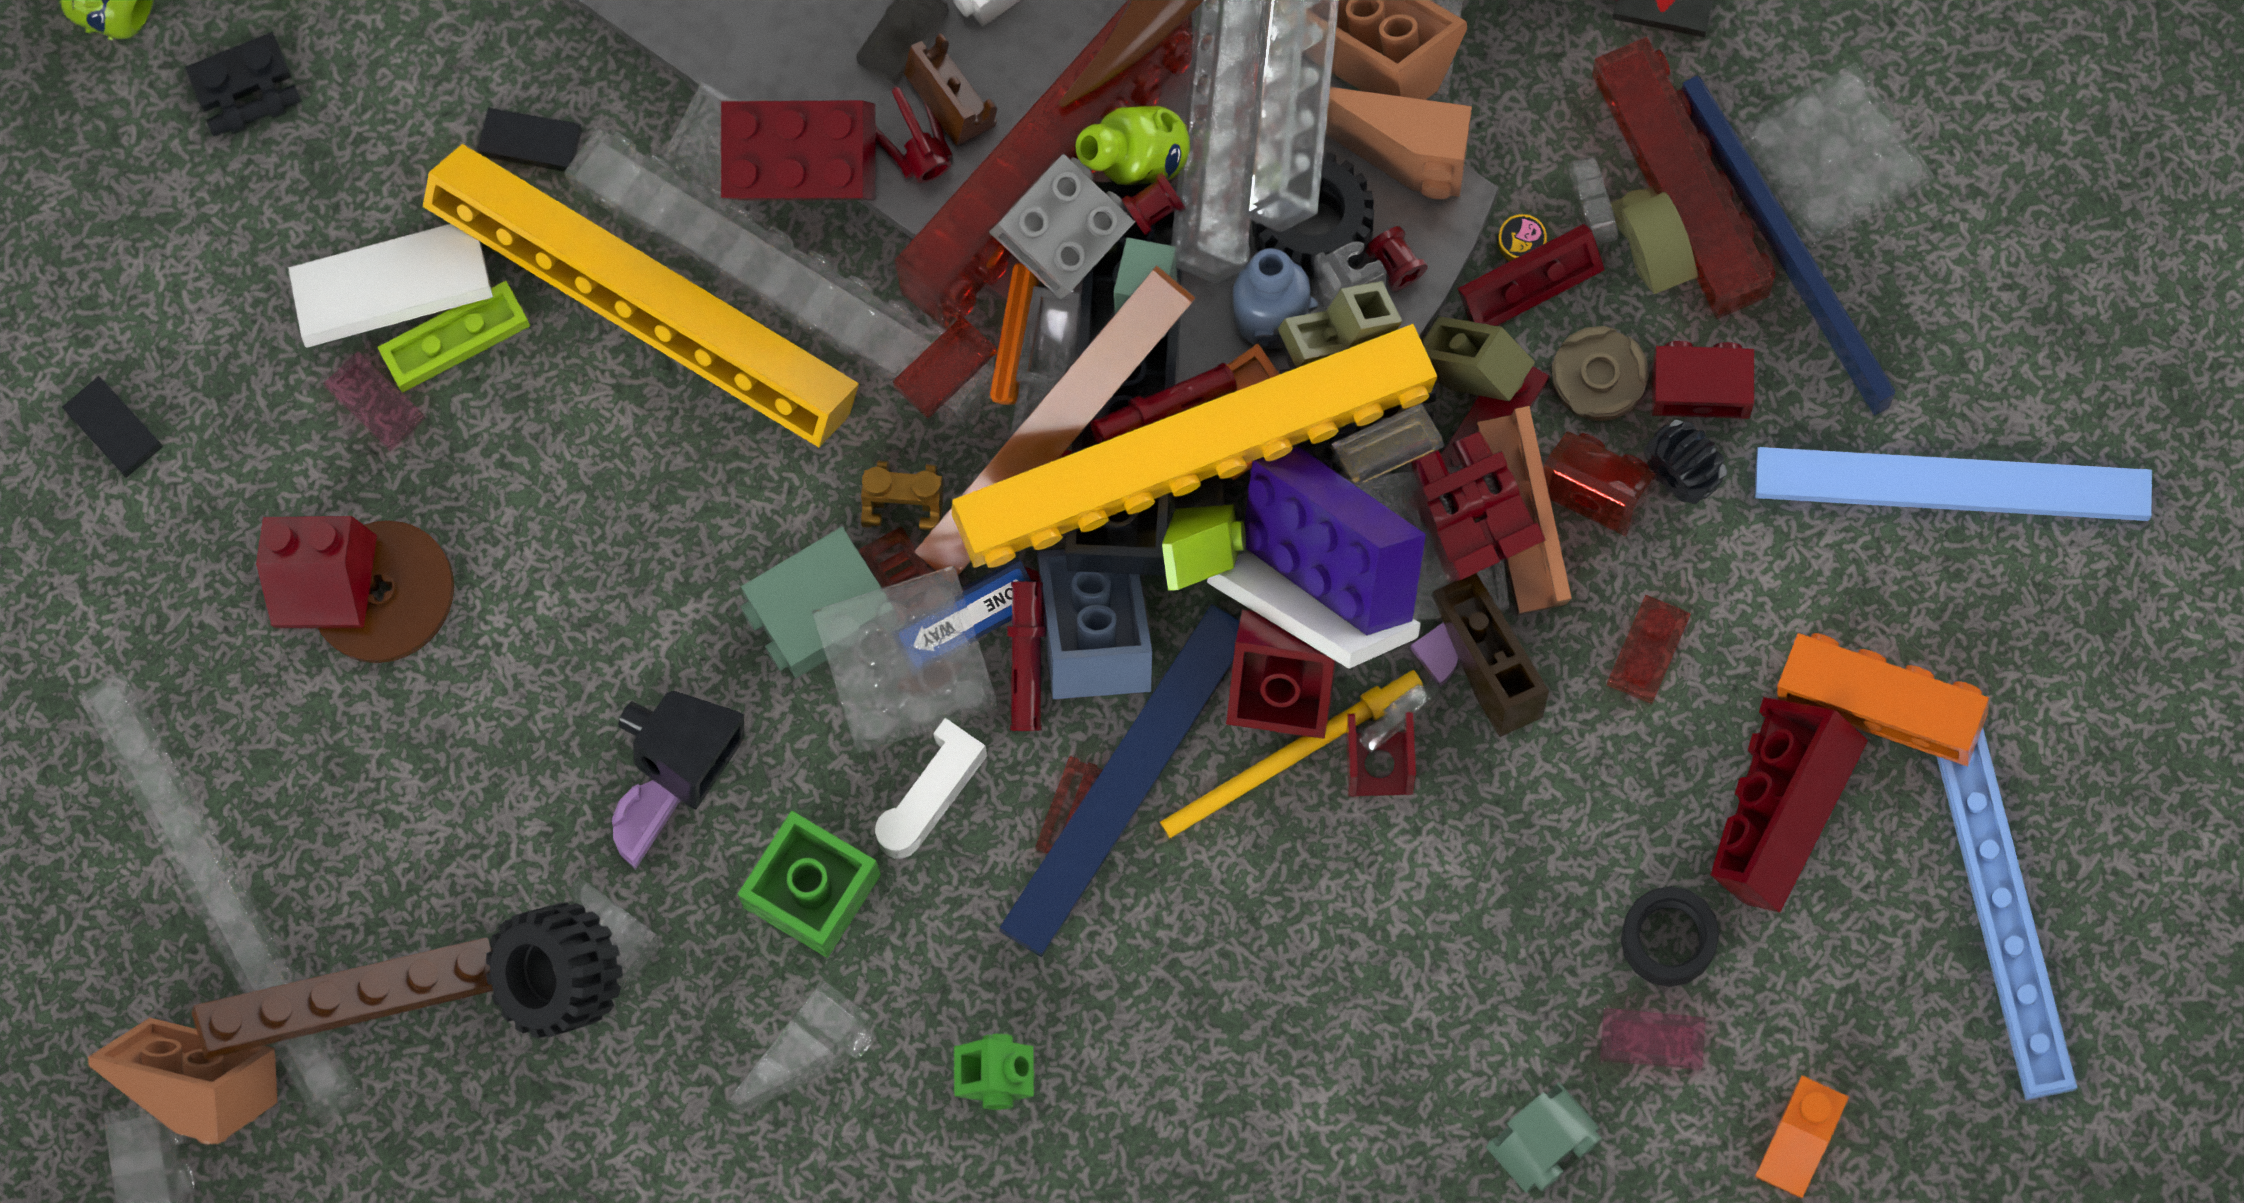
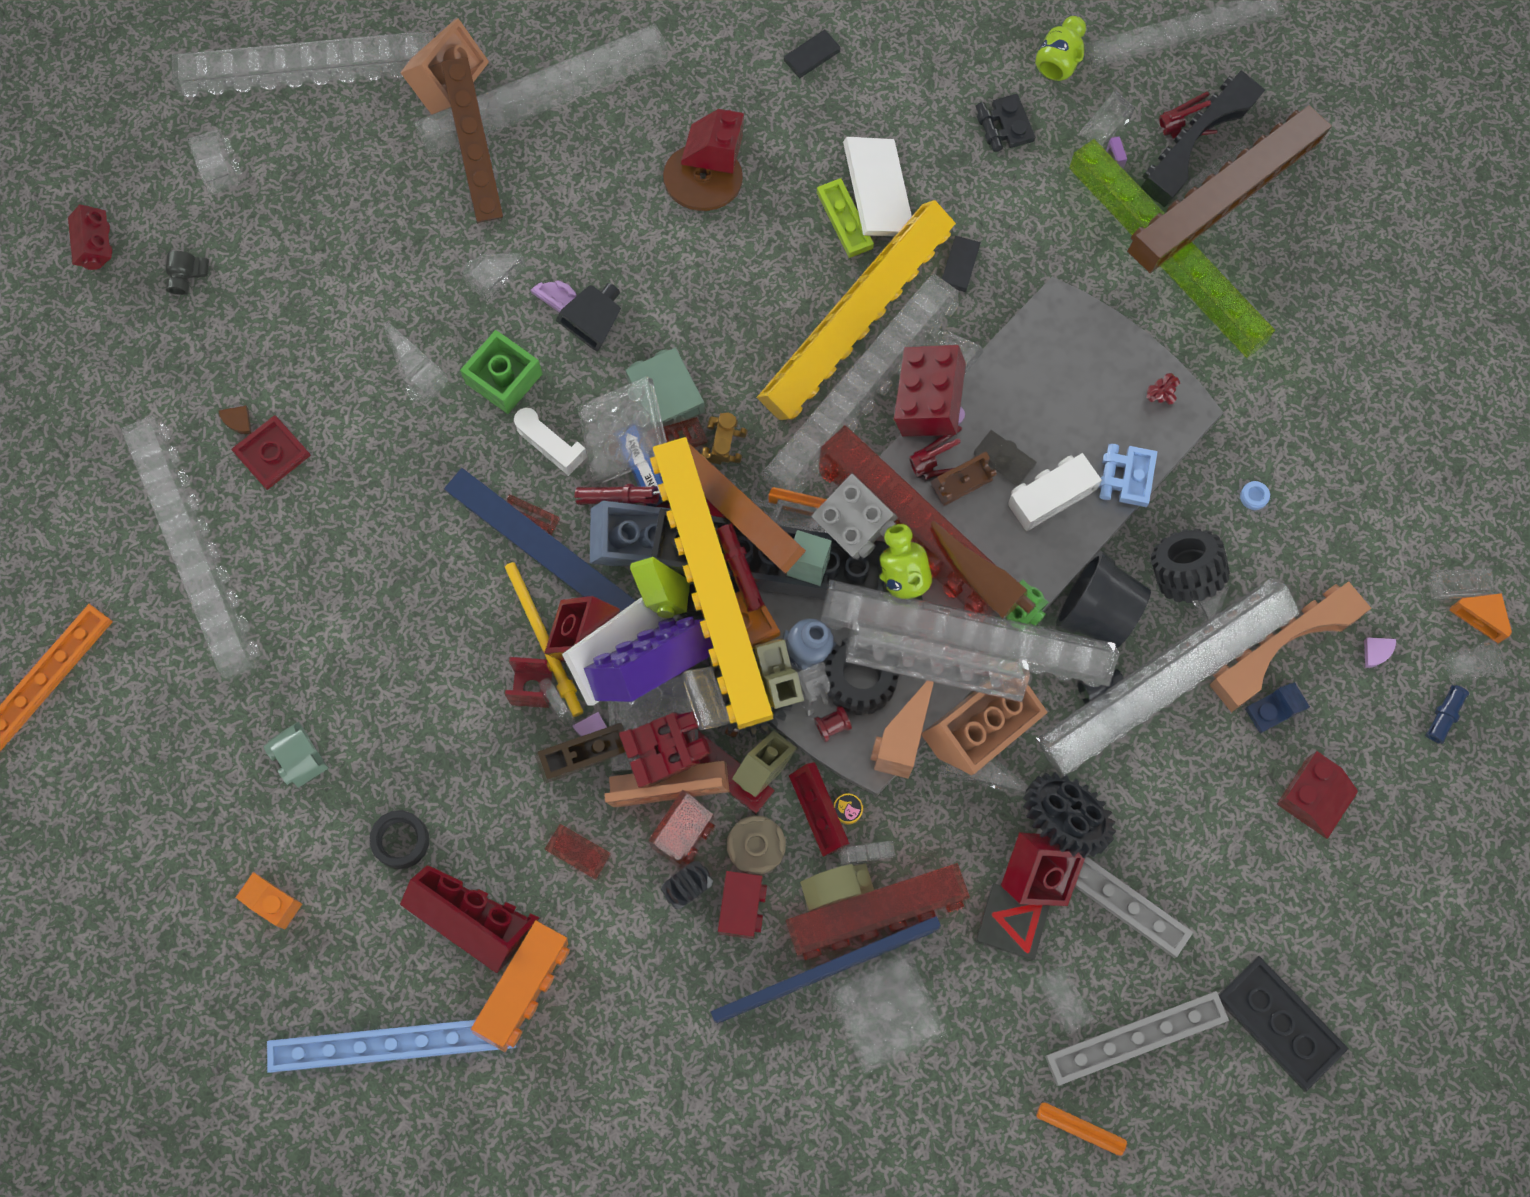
camera: 90 degrees right, 0 degrees up
(374, 401) = (817, 173): clear pink tile -> none
(582, 964) = (470, 238): black tyre -> none
(944, 367) = (791, 462): clear red tile -> none
(1004, 1071) = (381, 458): bright green brick -> none
(1153, 203) = (865, 570): dark red bush -> none
(1652, 1039) = (342, 823): clear pink tile -> none
(1953, 483) = (658, 1058): light blue tile -> none

